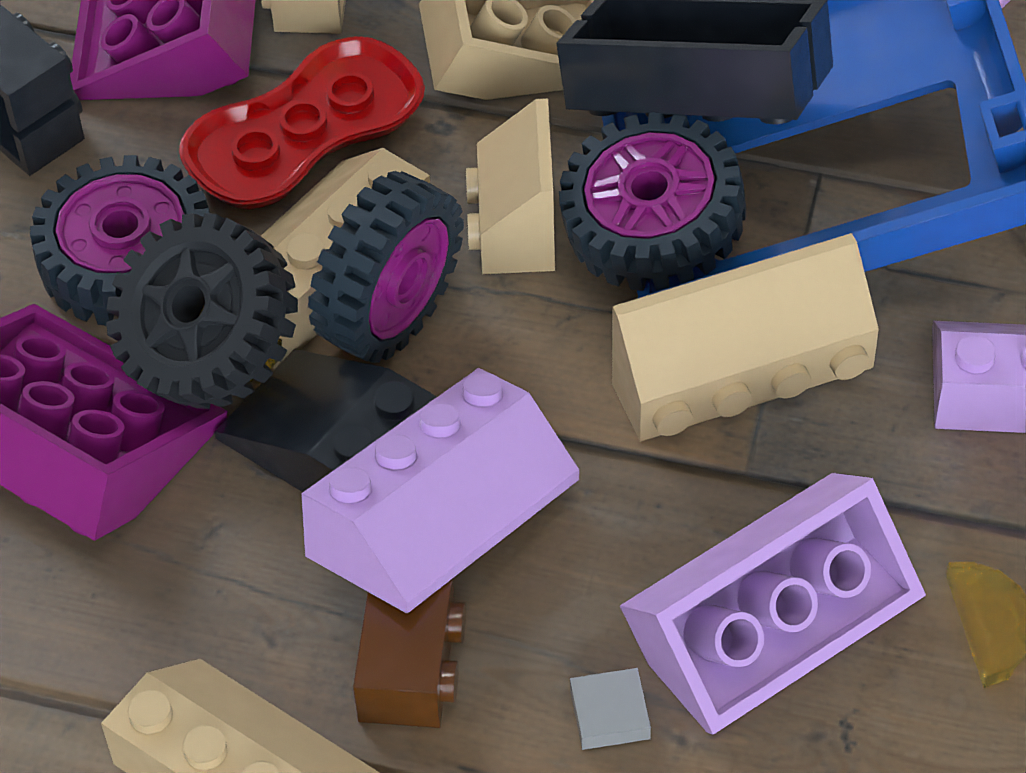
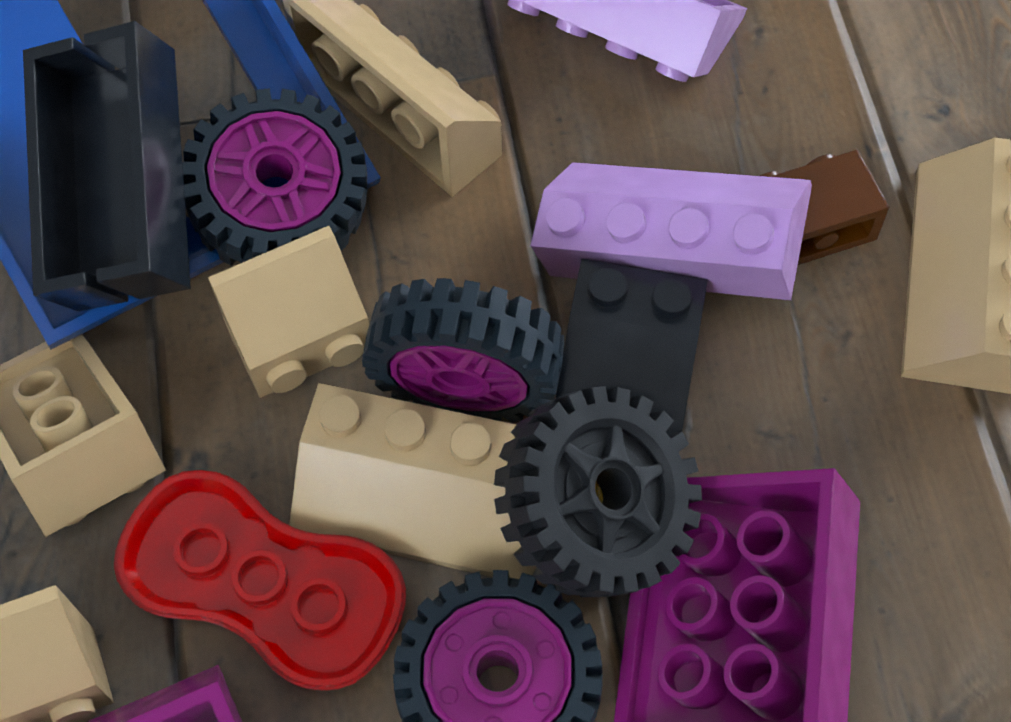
camera: 115 degrees left, 10 degrees up
(610, 708) = (768, 72): light grey tile -> none

